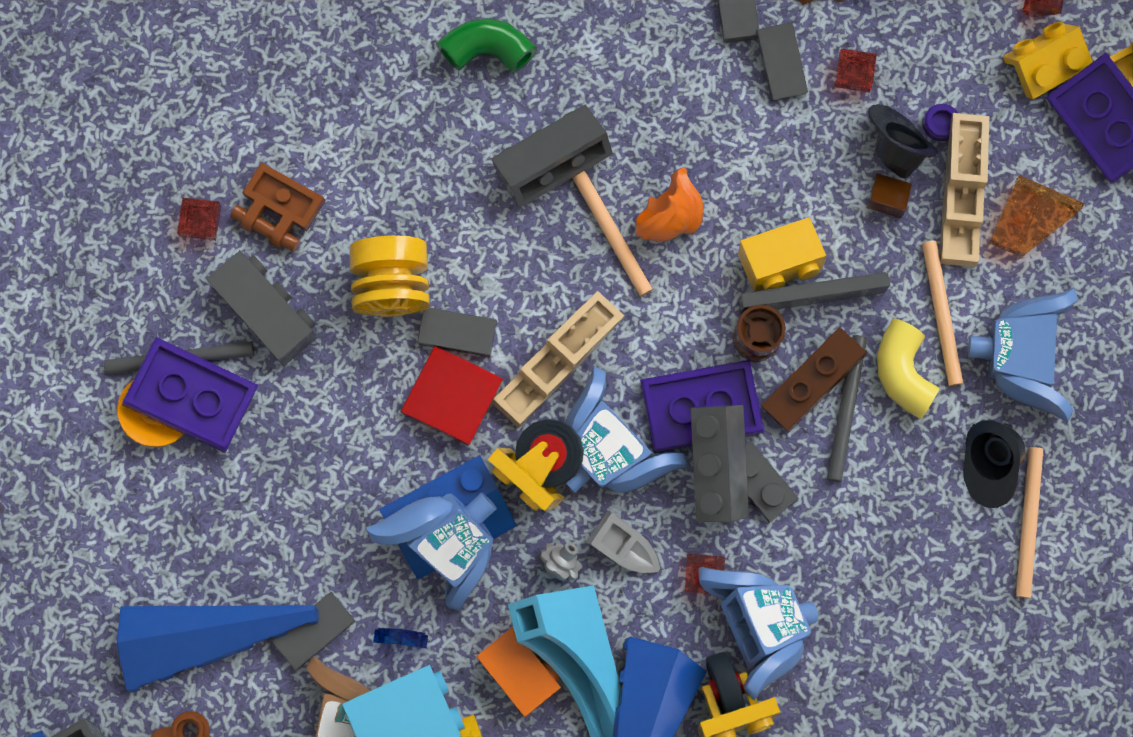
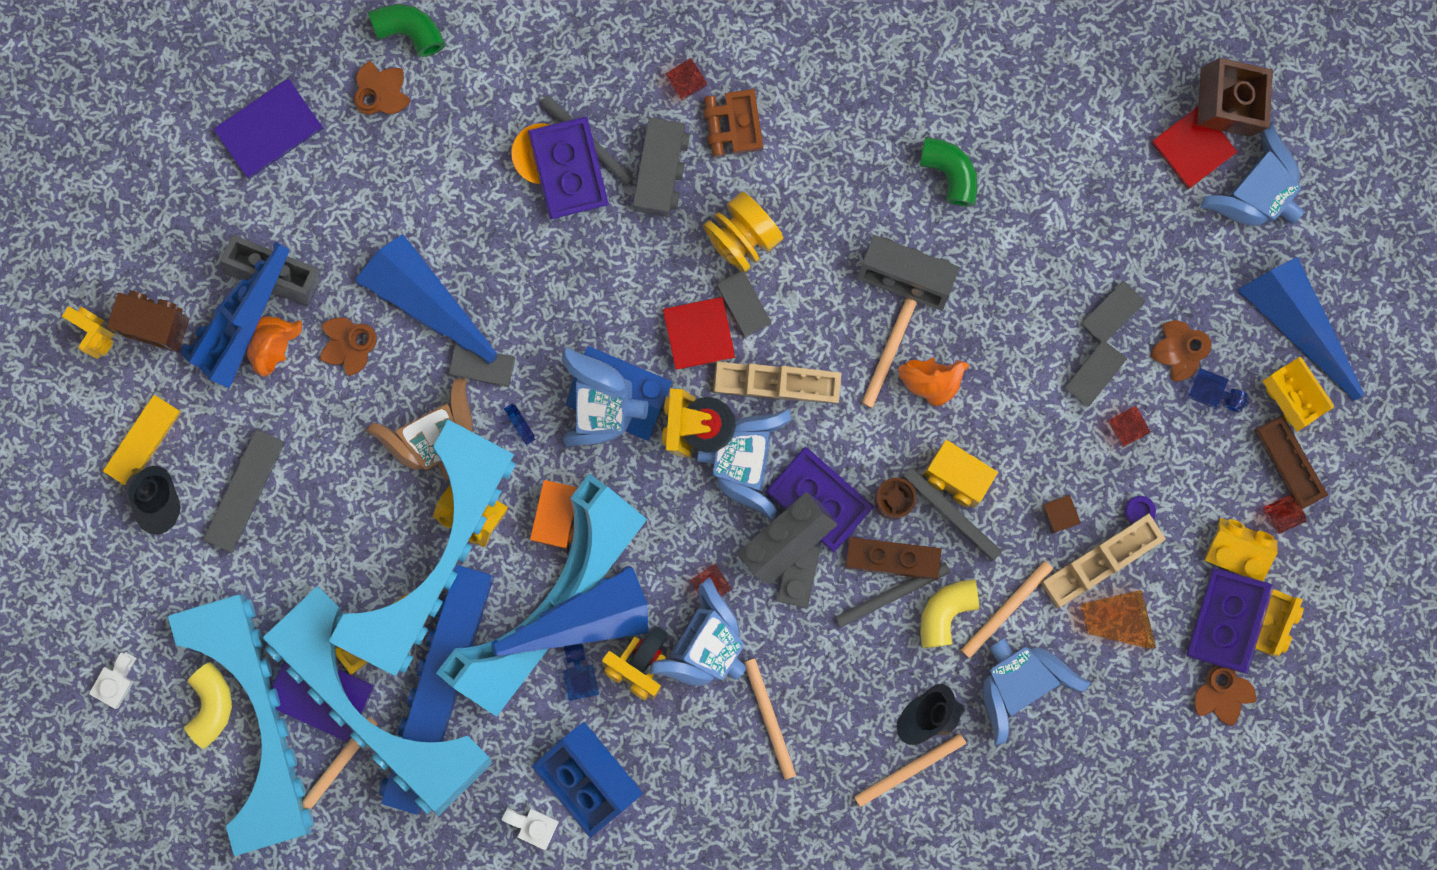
camera: 55 degrees right, 5 degrees up
(561, 561) = (647, 486): light grey plant -> none
(623, 545) = (688, 518): light grey plate -> none
(879, 619) = (769, 719): none -> light nougat bar
(899, 141) = (1102, 493): black piece -> none

